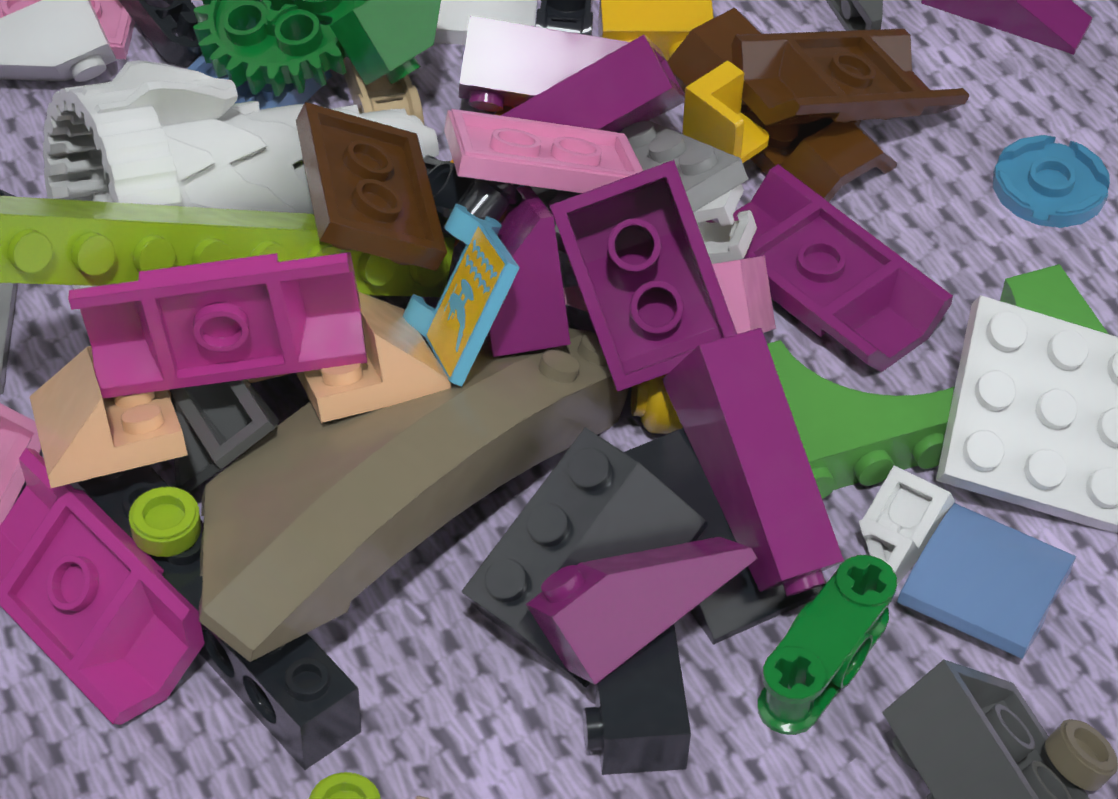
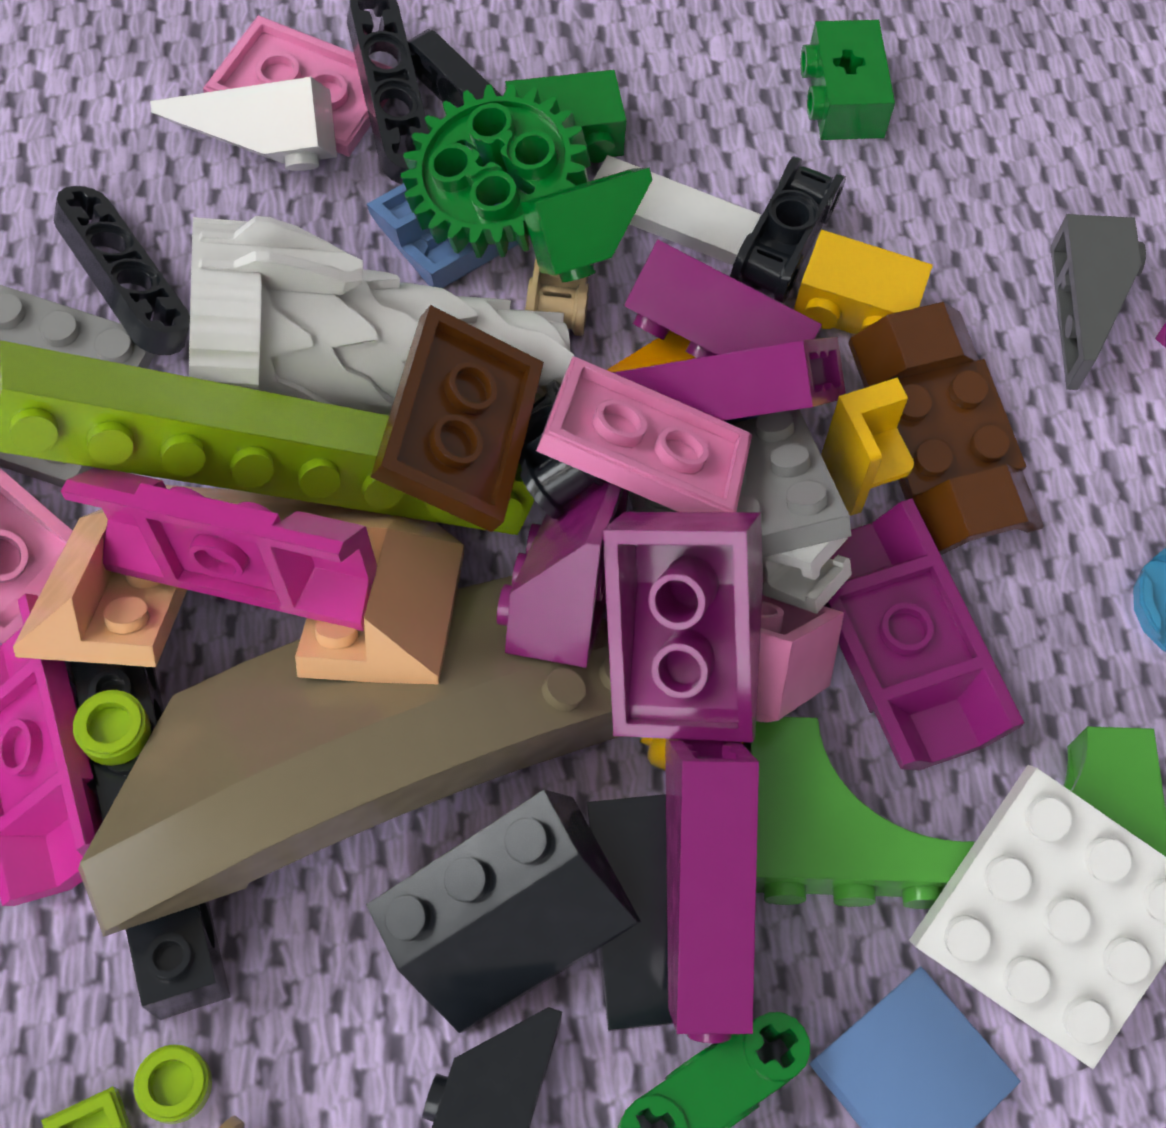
camera: 20 degrees right, 15 degrees up
(217, 427) = (225, 636): dark grey slope -> none
(470, 298) = (502, 588): flag -> none
(618, 604) = (524, 985): magenta slope -> none
(835, 76) = (1014, 420): reddish brown piece -> none
(903, 519) = (854, 970): white slope -> none

